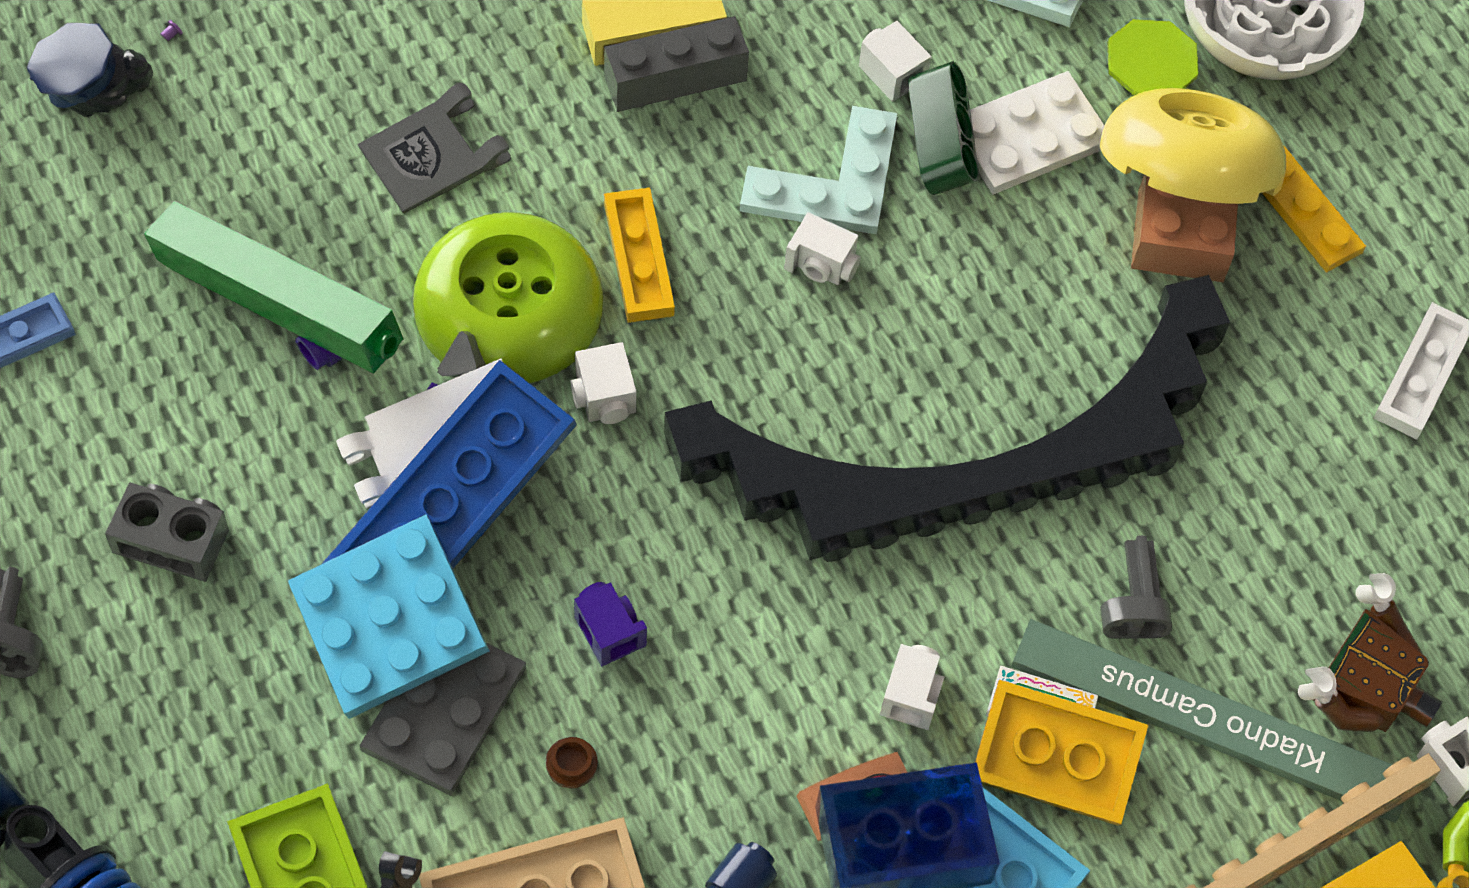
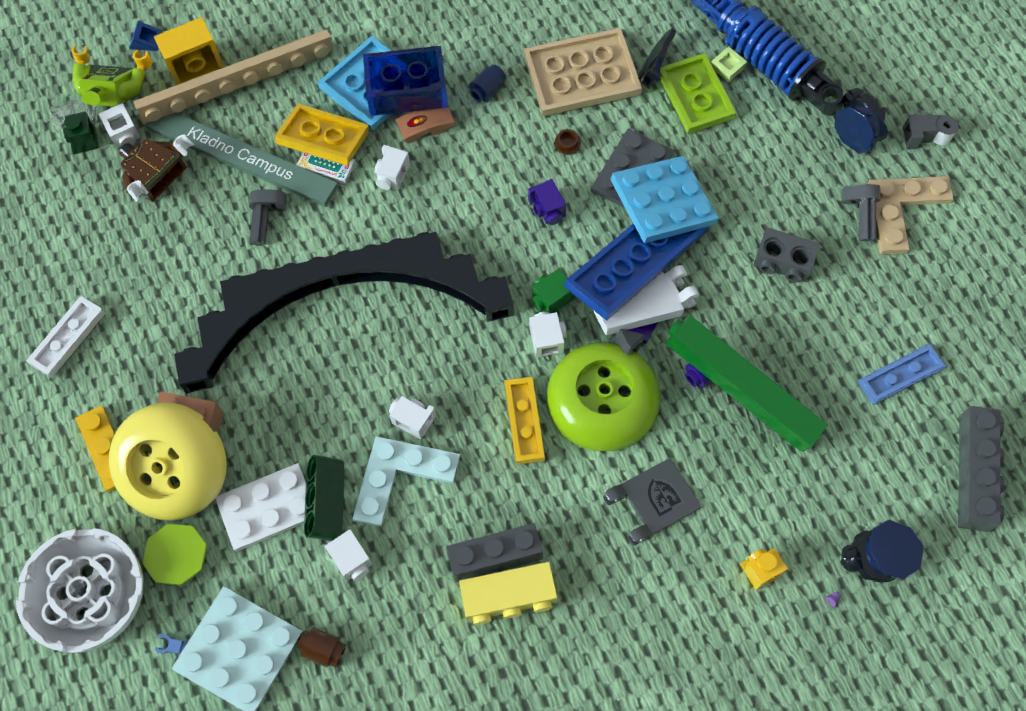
camera: 170 degrees left, 5 degrees up
(271, 52) = (763, 567): none -> yellow brick
(596, 455) = (549, 292): none -> green brick

